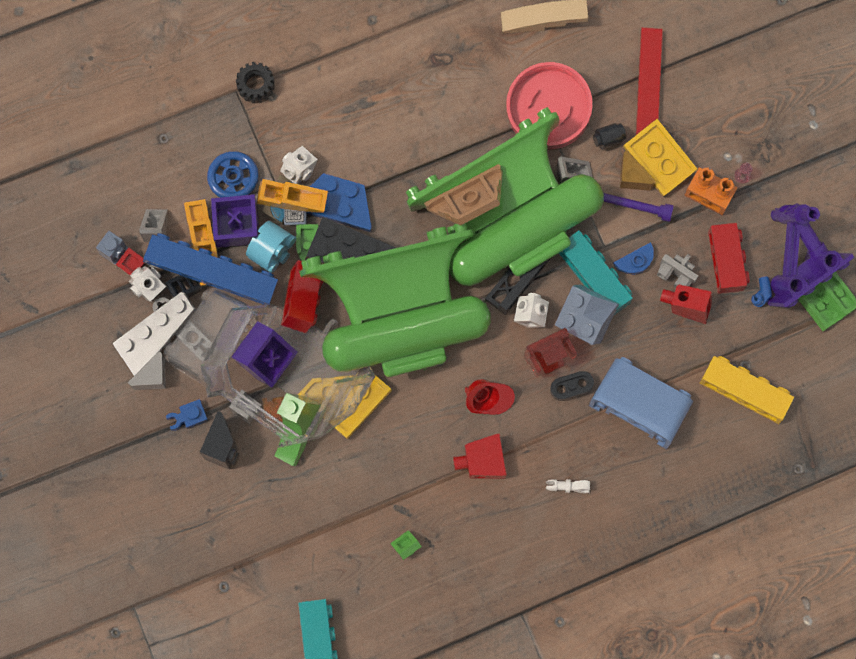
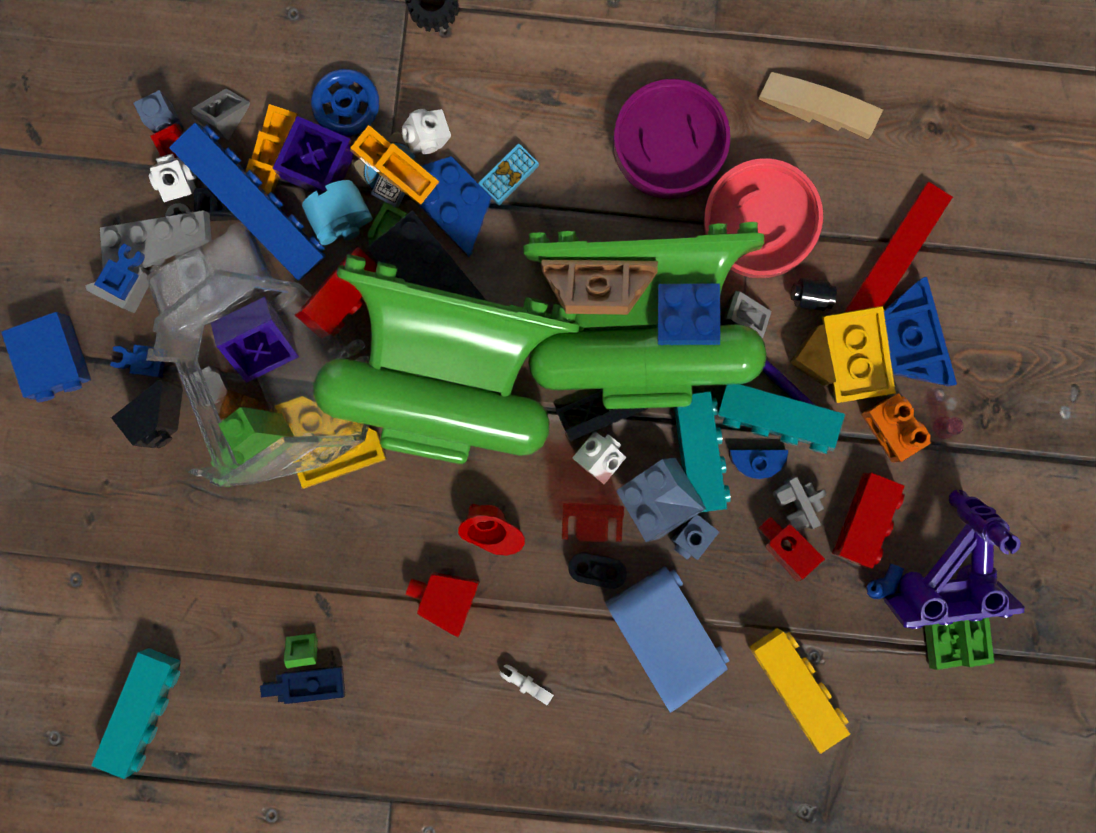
camera: 30 degrees right, 10 degrees up
(124, 446) = (46, 357): none -> blue brick
(150, 363) = (118, 277): none -> blue plate
(367, 164) = (509, 174): none -> medium azure tile
(422, 566) = (306, 685): none -> dark blue hinge
(461, 87) = (671, 138): none -> magenta brick
(537, 185) = (689, 314): none -> blue plate
(622, 329) = (694, 537): none -> sand blue brick
(633, 222) = (782, 417): none -> teal brick
(691, 128) = (917, 337): none -> blue wing

